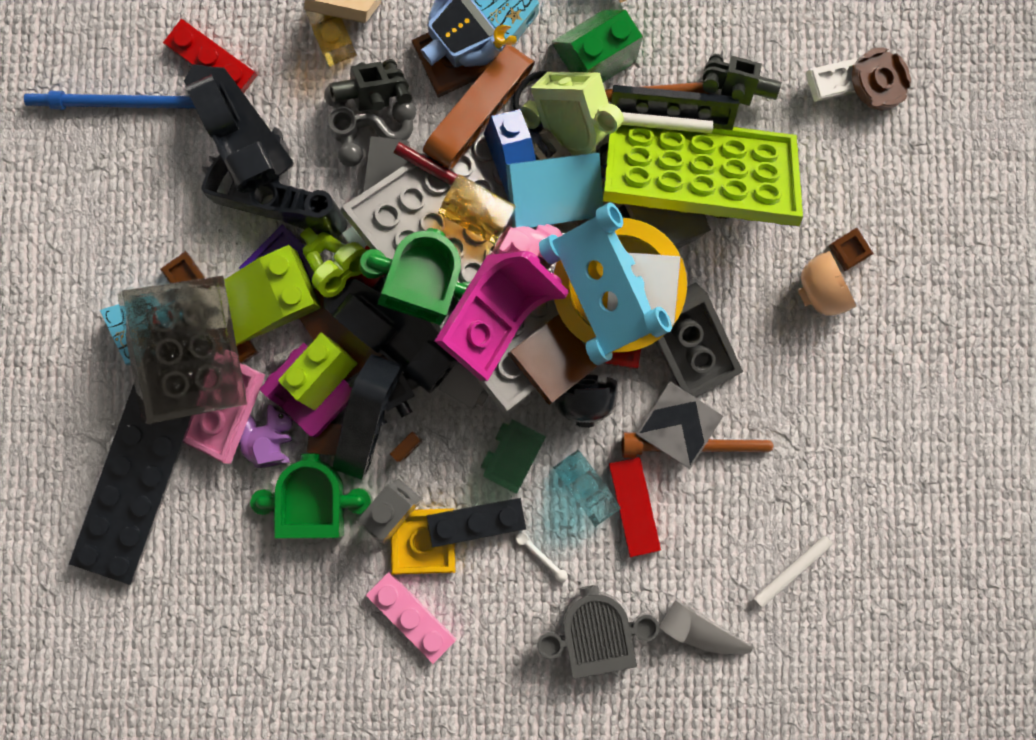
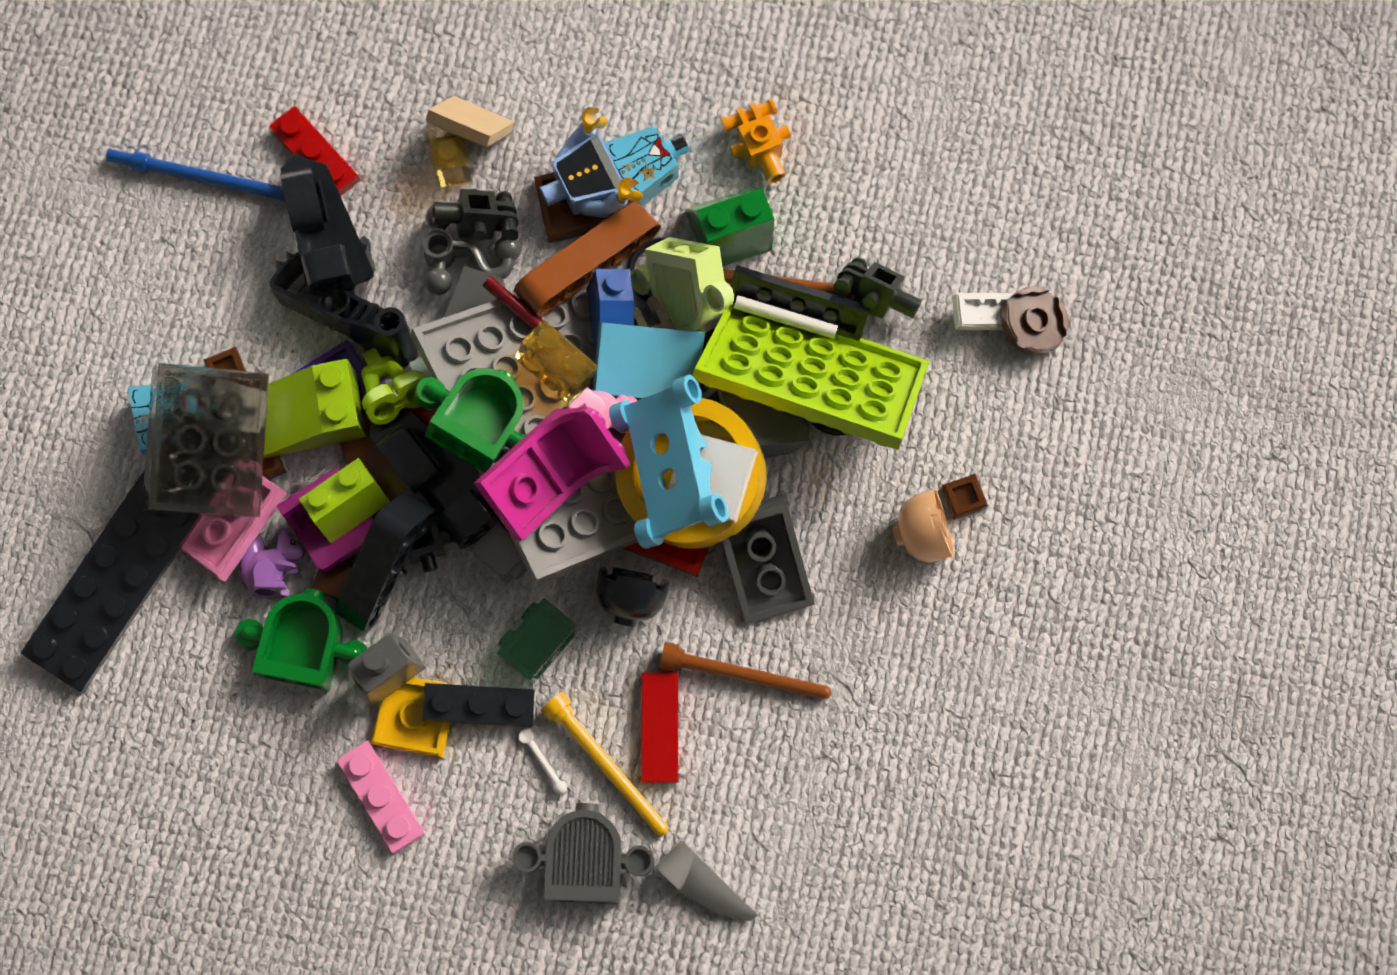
camera: 10 degrees right, 10 degrees down
(406, 447) = (421, 606): reddish brown tile -> none
(547, 512) = (561, 712): none -> yellow piece
(552, 359) = (600, 538): reddish brown tile -> none
(587, 488) = (610, 693): clear light blue slope -> none
(679, 425) = (729, 646): piece -> none
(793, 571) = (822, 839): white bar -> none

